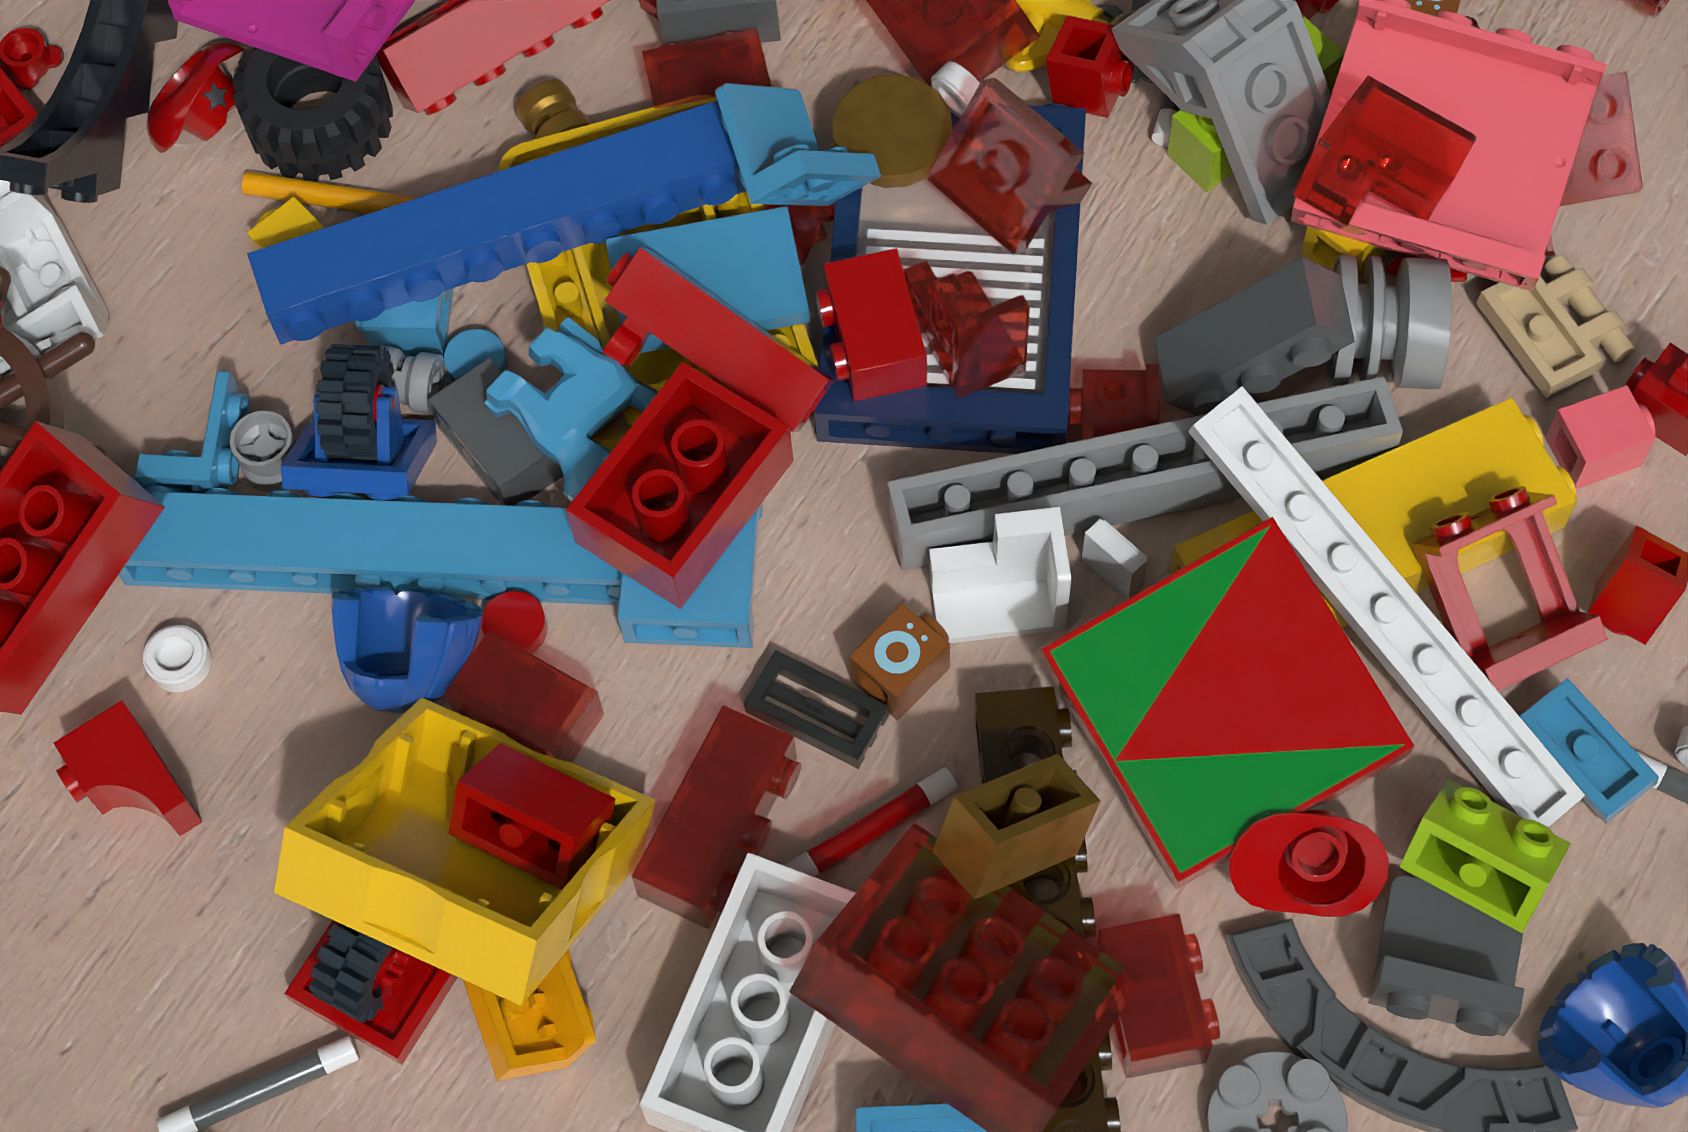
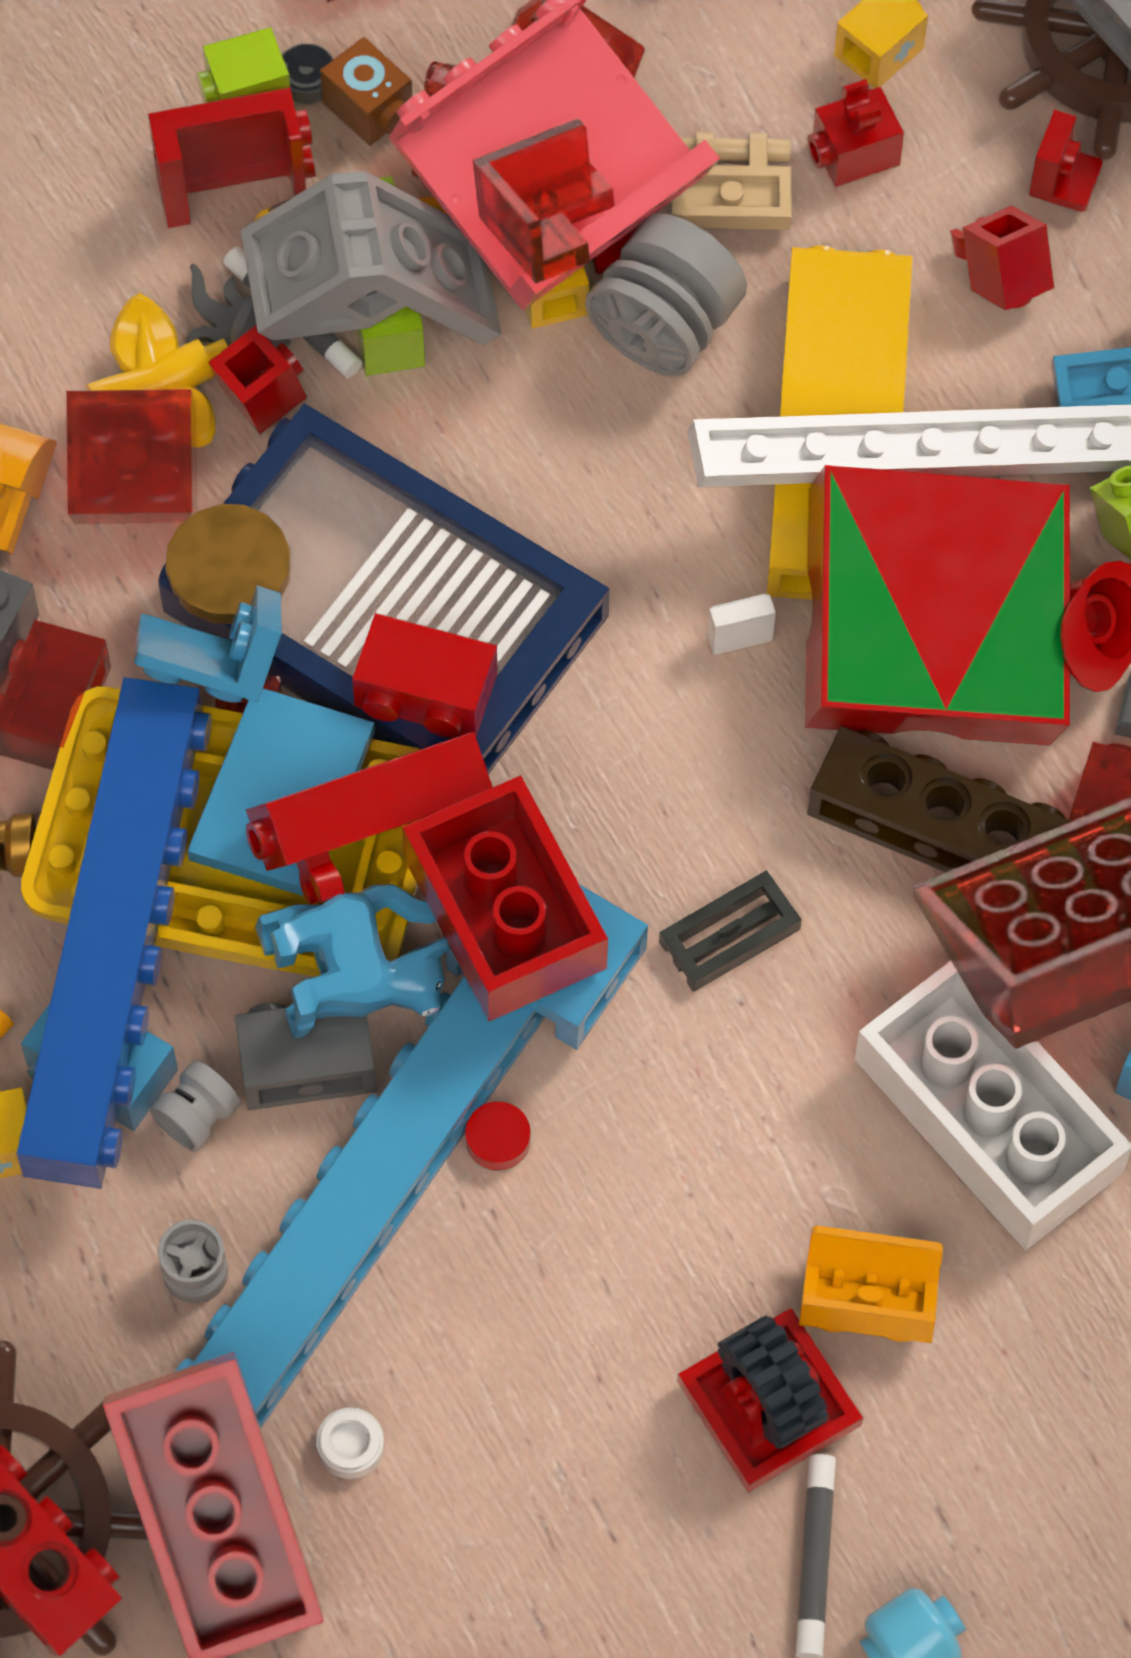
camera: 65 degrees left, 0 degrees up
(120, 767) = (444, 1525): red arch -> none
(217, 464) = (183, 1312): dark azure bracket -> none
(358, 431) = (246, 1163): plate -> none
(384, 864) = (731, 1246): yellow tile -> none
(402, 643) = (476, 1223): blue hair -> none
(471, 349) = (207, 1037): dark azure tile -> none
(525, 699) = (590, 1160): clear red brick -> none
(529, 815) = (725, 1185): red brick -> none
(717, 817) = (791, 1054): clear red brick -> none
(875, 824) = (862, 939): red bar -> none
(901, 659) = (733, 836): dark orange brick -> none
(955, 86) = (232, 484): white tile -> none
(966, 333) = (479, 603): clear red panel -> none
(1005, 584) = (718, 713): white panel -> none
(1008, 166) = (345, 487): clear red bracket -> none
(1015, 826) = (972, 805): pearl gold brick -> none
(1115, 401) = (616, 528): clear red brick -> none
(1129, 472) = (675, 576): light grey brick -> none
(1255, 337) = (629, 399): dark grey brick -> none
(1562, 628) = (1008, 344): panel -> none
(1601, 436) = (856, 206): coral brick -> none

